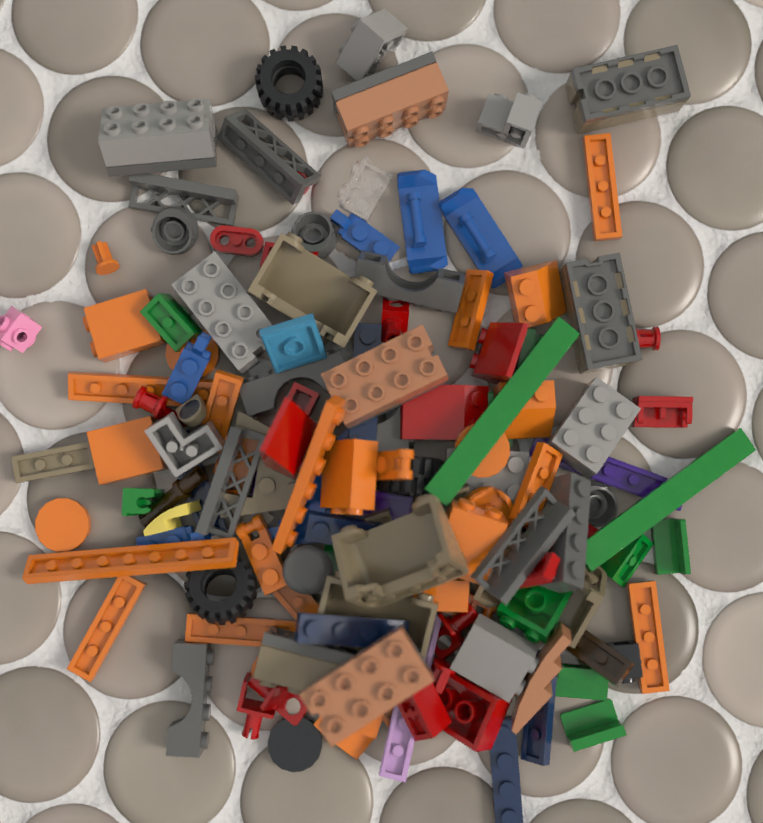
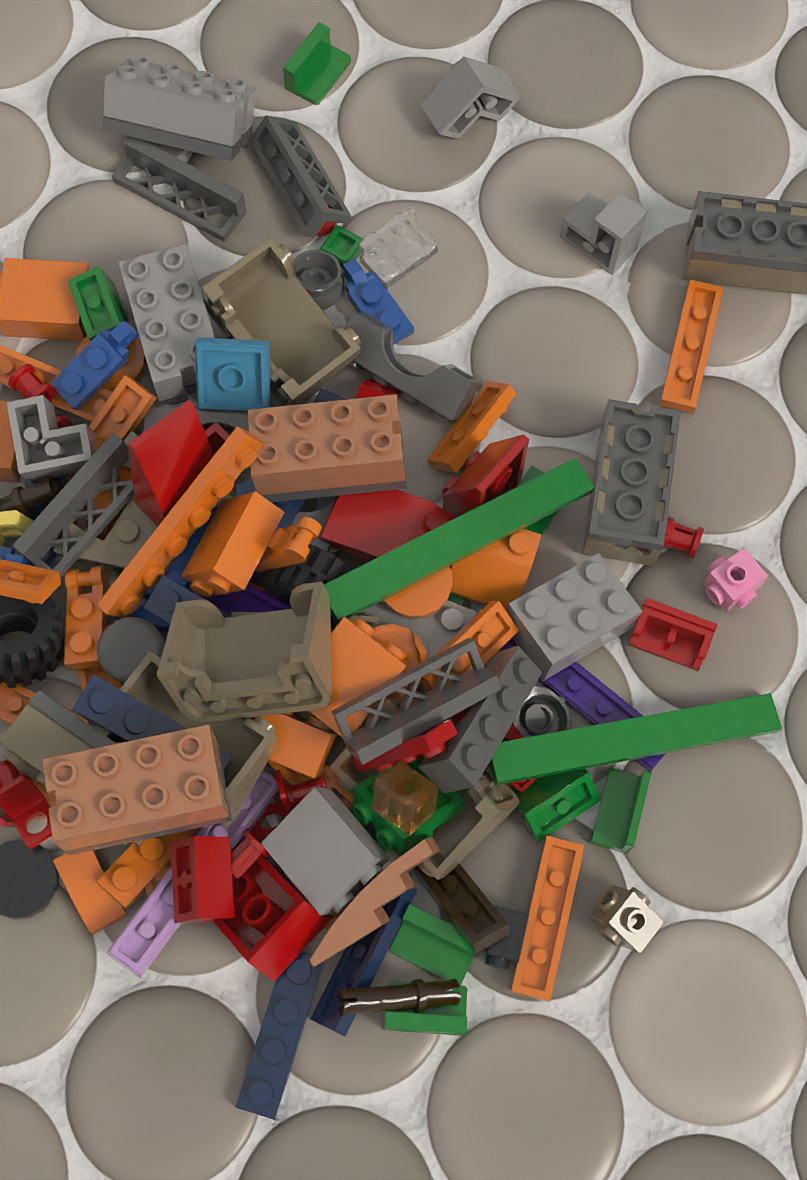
camera: 25 degrees right, 15 degrees down
(104, 259) = (55, 225): orange piece -> none
(175, 230) = (152, 217): dark grey piece -> none
(192, 411) = (77, 412): dark tan tile -> none
(237, 242) = (223, 253): red plate -> none
(242, 56) = (315, 66): none -> green panel
(286, 63) = (351, 87): black tyre -> none
(322, 200) = (342, 245): none -> green tile
(390, 100) = (467, 160): nougat piece -> none
(421, 221) = (453, 308): blue piece -> none
(479, 234) = (518, 348): blue piece -> none
(536, 293) = (561, 430): orange slope -> none
(542, 620) = (404, 797): none -> clear orange brick
(583, 722) = (395, 997): none -> dark brown pin
(692, 358) = (734, 580): none -> bright pink brick
(700, 620) = (626, 918): none -> dark tan brick

